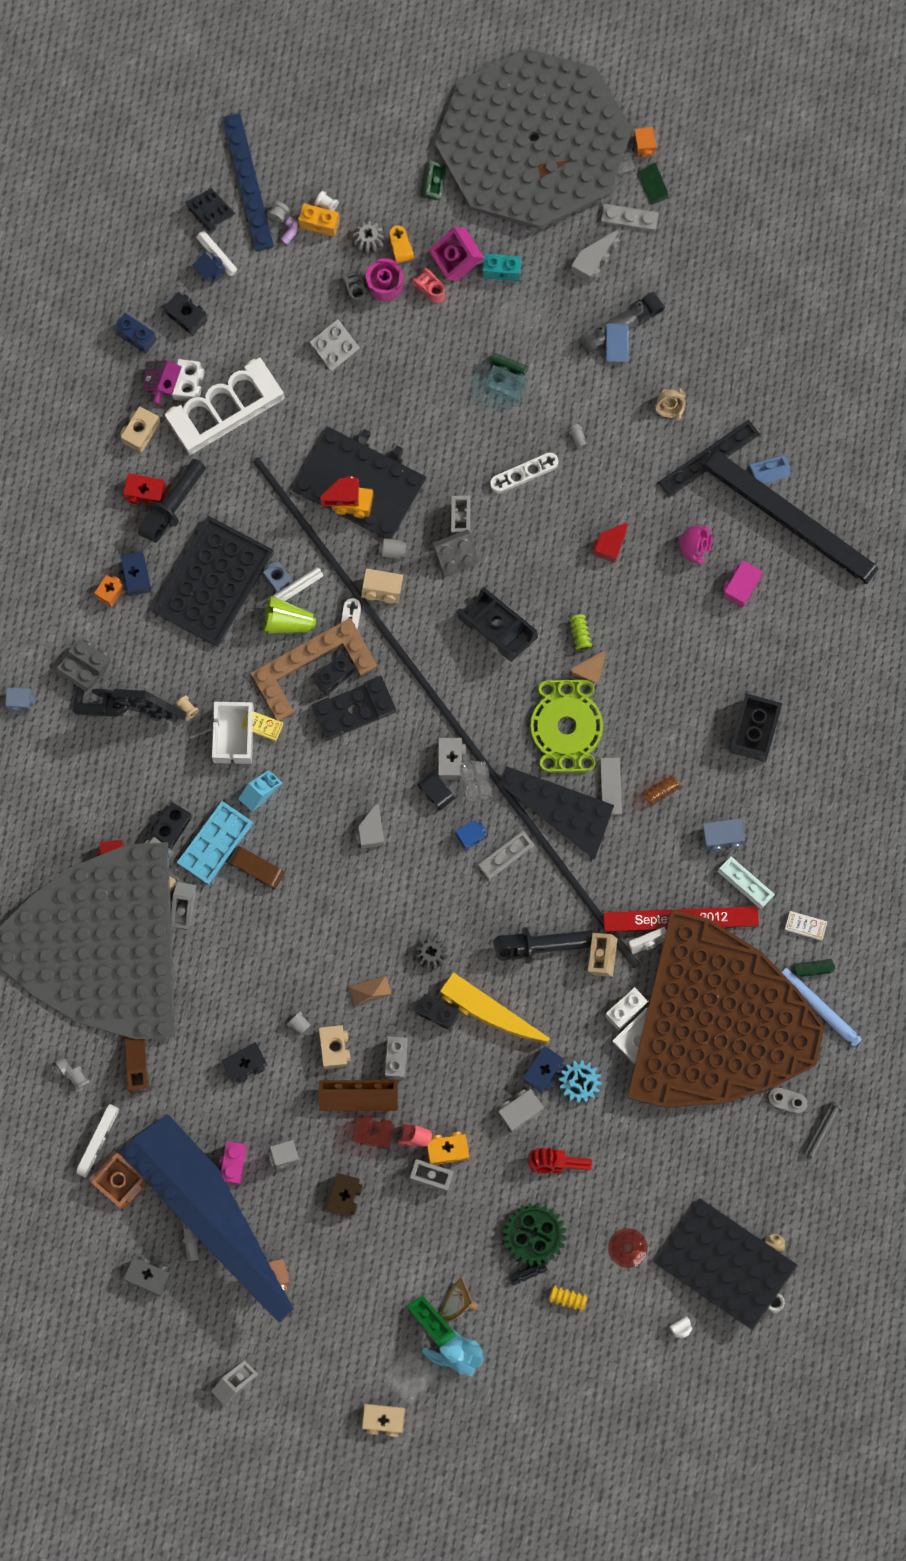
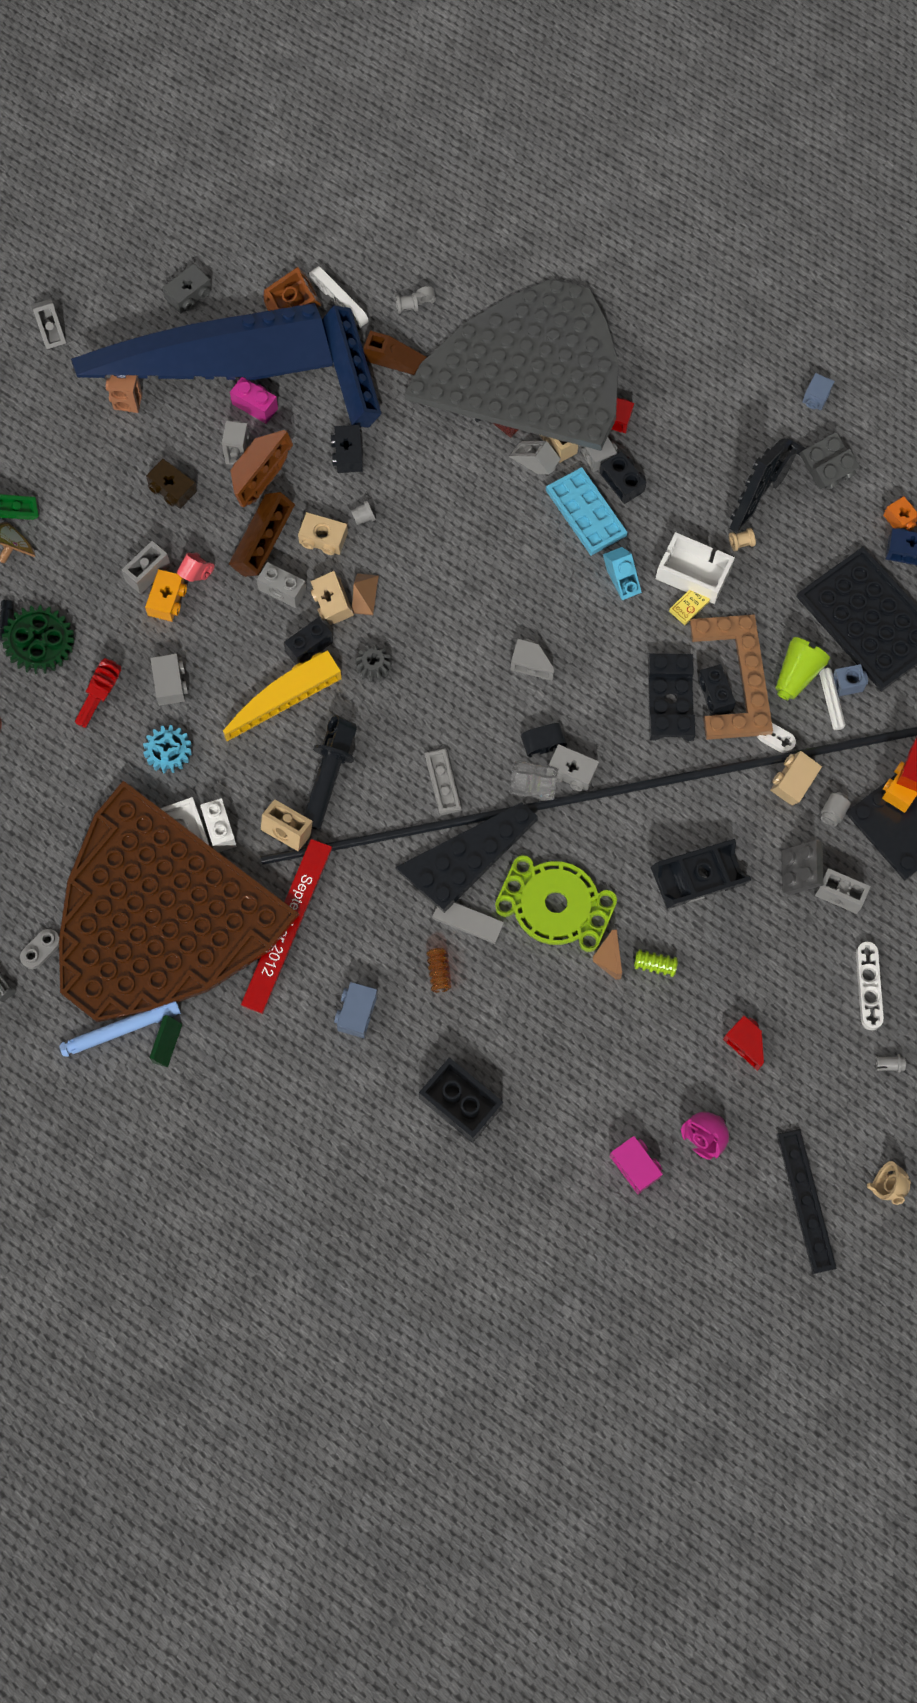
camera: 110 degrees right, 5 degrees down
(166, 1094) = (351, 366): none -> dark blue brick
(256, 866) = (541, 537): reddish brown beam -> none
(301, 1125) = (259, 466): none -> dark orange wedge
(362, 1135) = (218, 525): clear red brick -> none
(379, 1014) = (331, 587): none -> tan brick
(471, 834) = (480, 753): blue brick -> none
(545, 1058) = (195, 707): dark blue brick -> none
(647, 941) = (278, 880): white plate -> none
(746, 882) = (293, 1011): light aqua plate -> none
(771, 469) = (764, 1265): medium blue slope -> none
(789, 516) = (694, 1258): black beam -> none
(806, 925) = (215, 1055): white tile -> none

